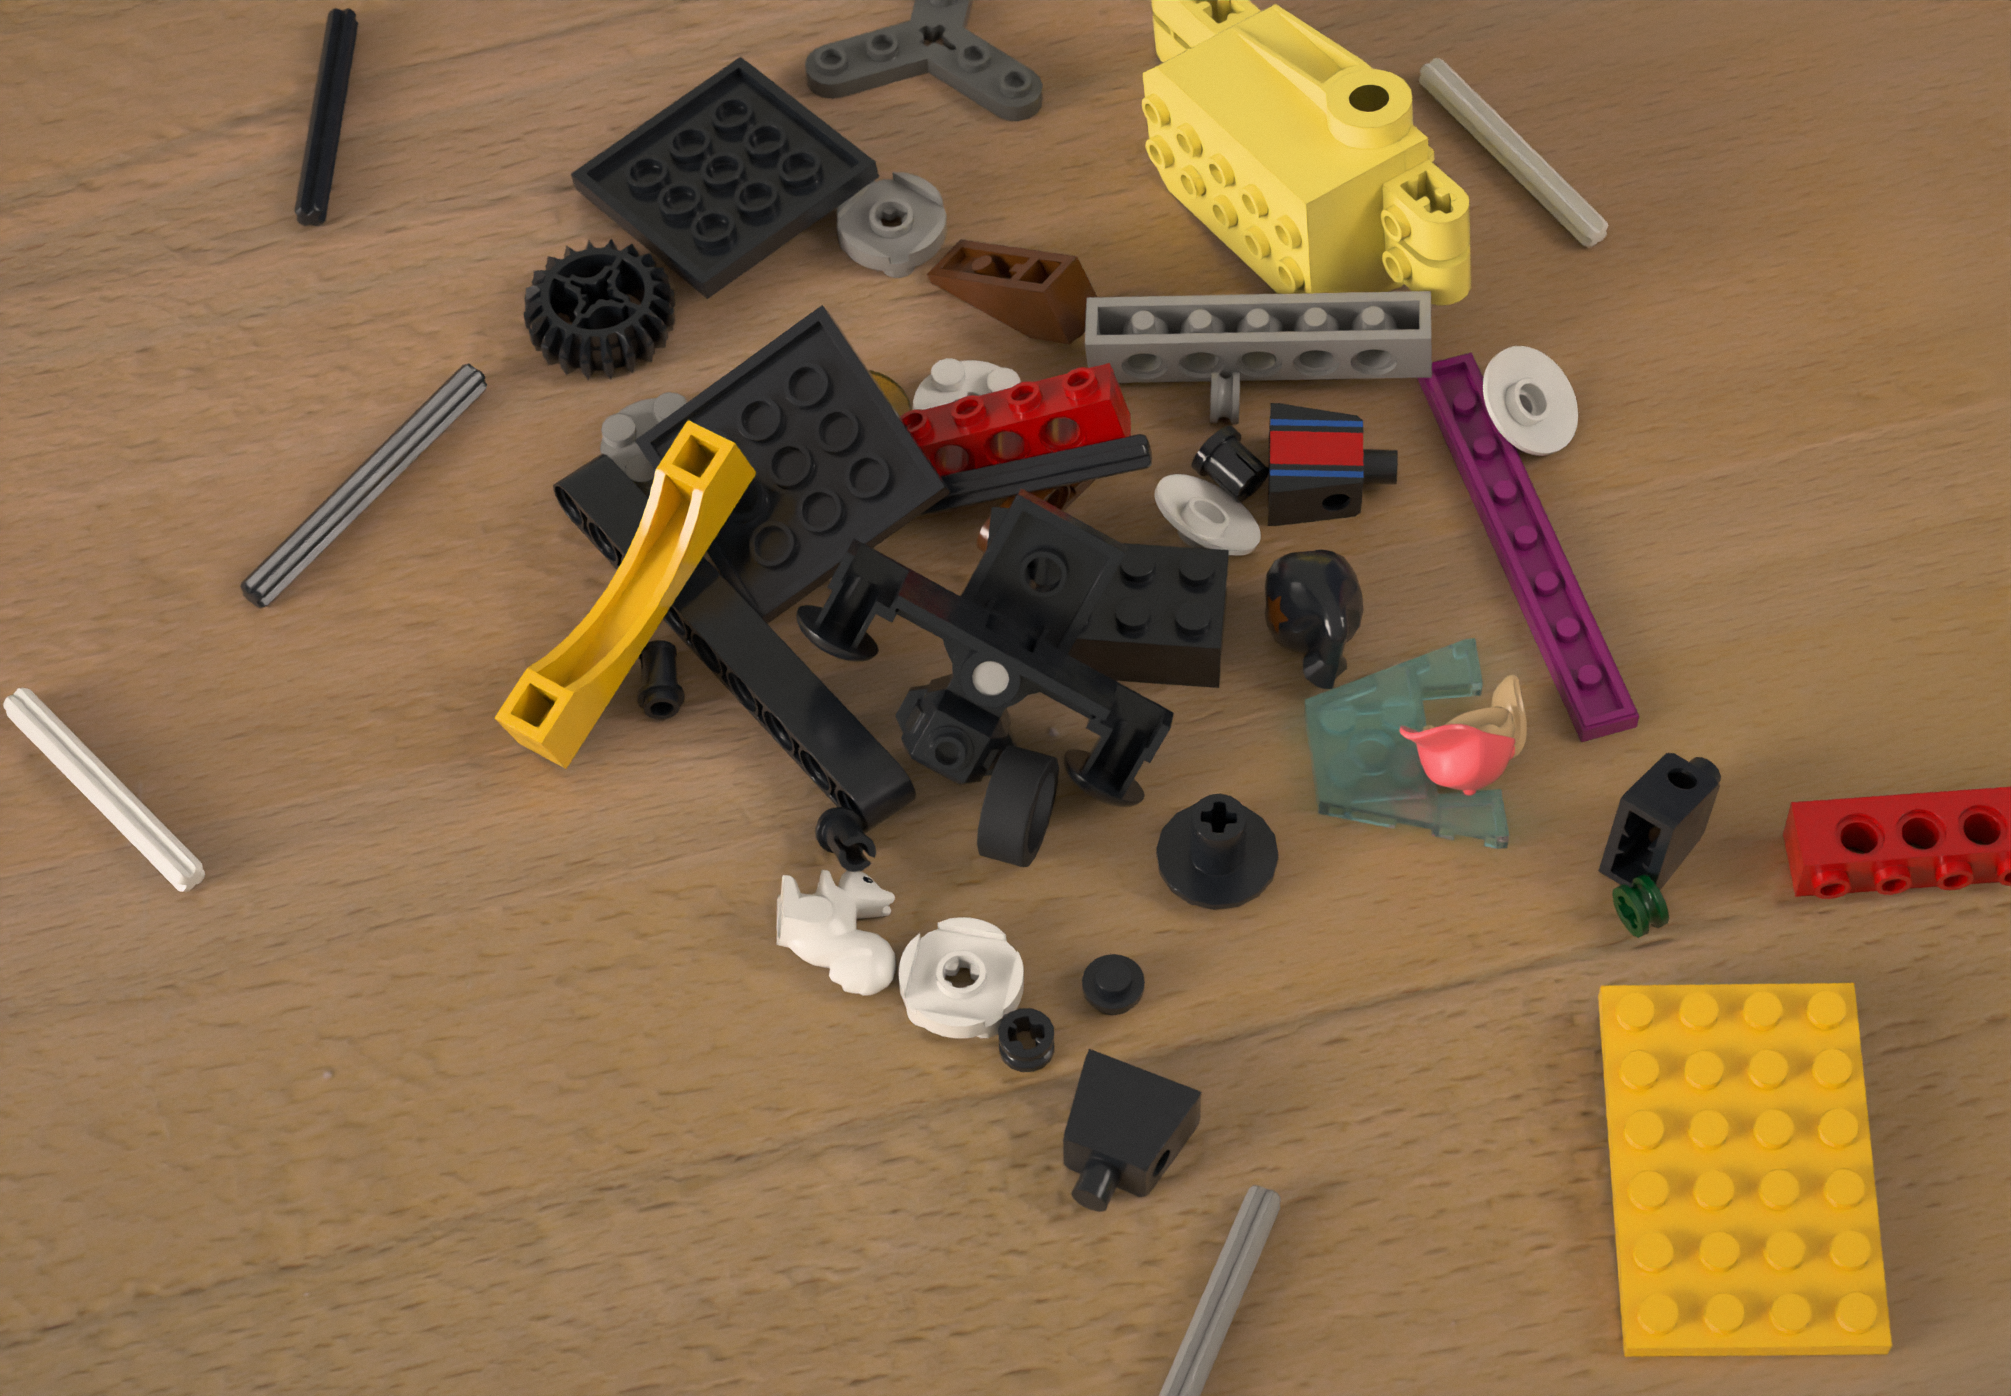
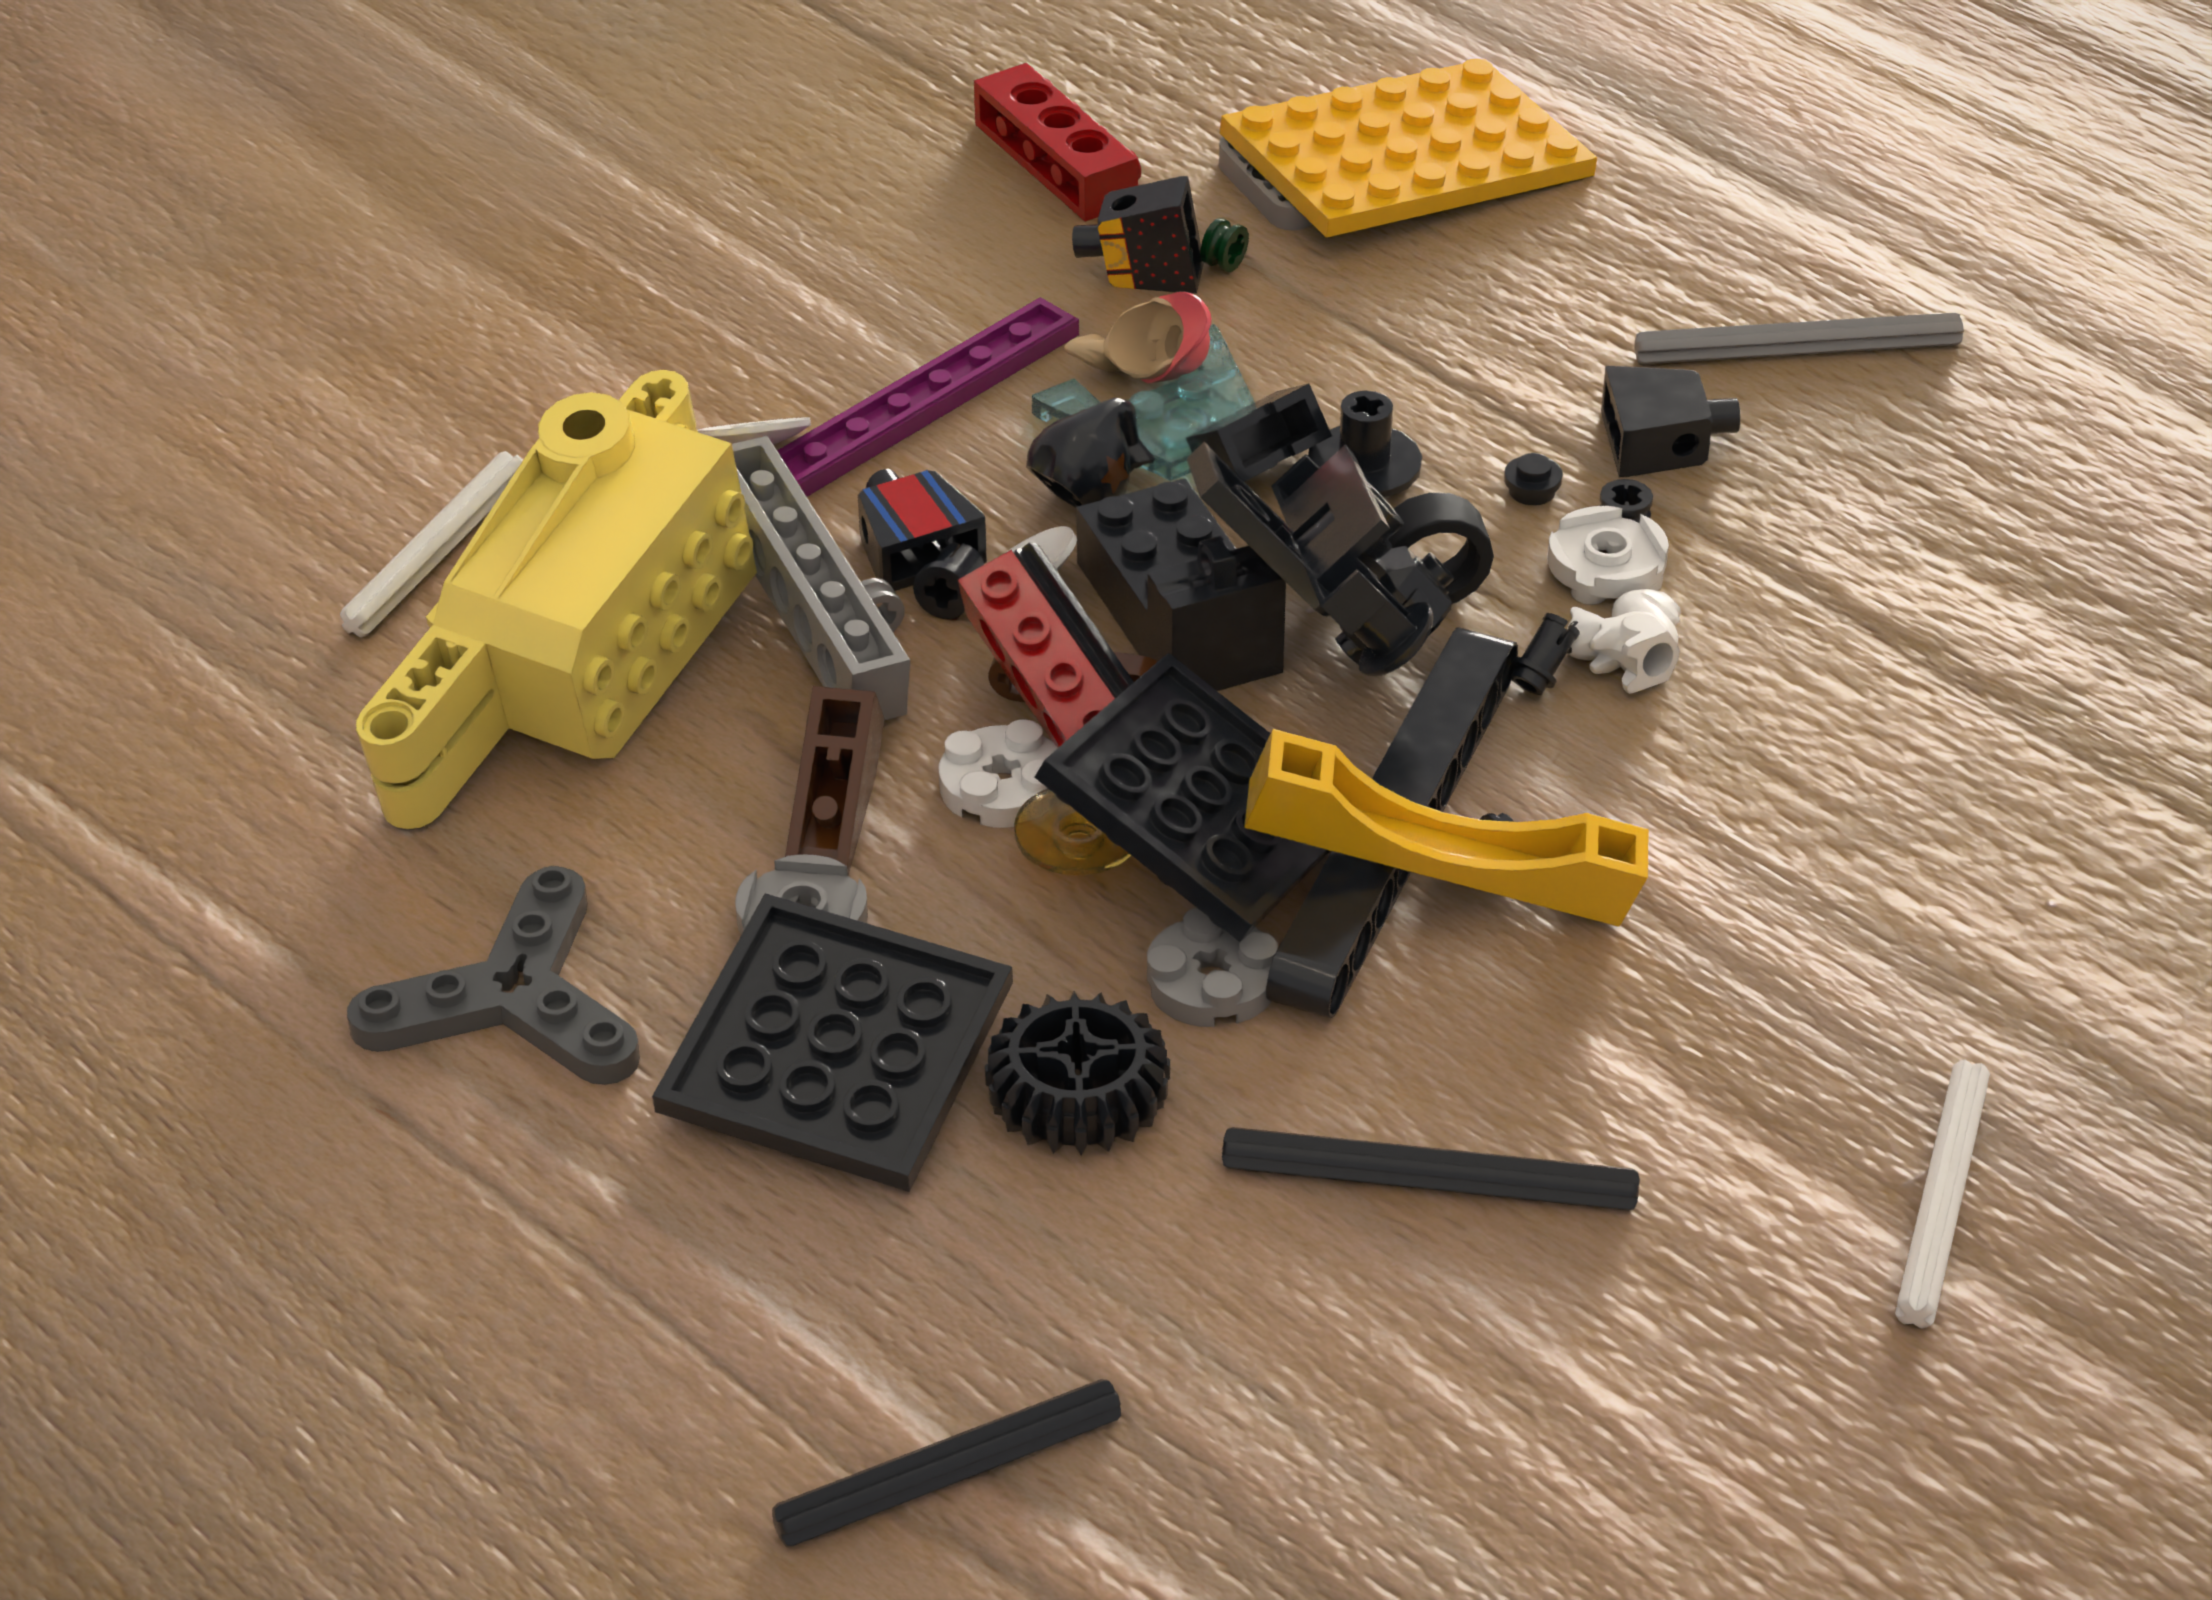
camera: 120 degrees left, 15 degrees down
(1275, 757) = (1266, 431): none -> black brick

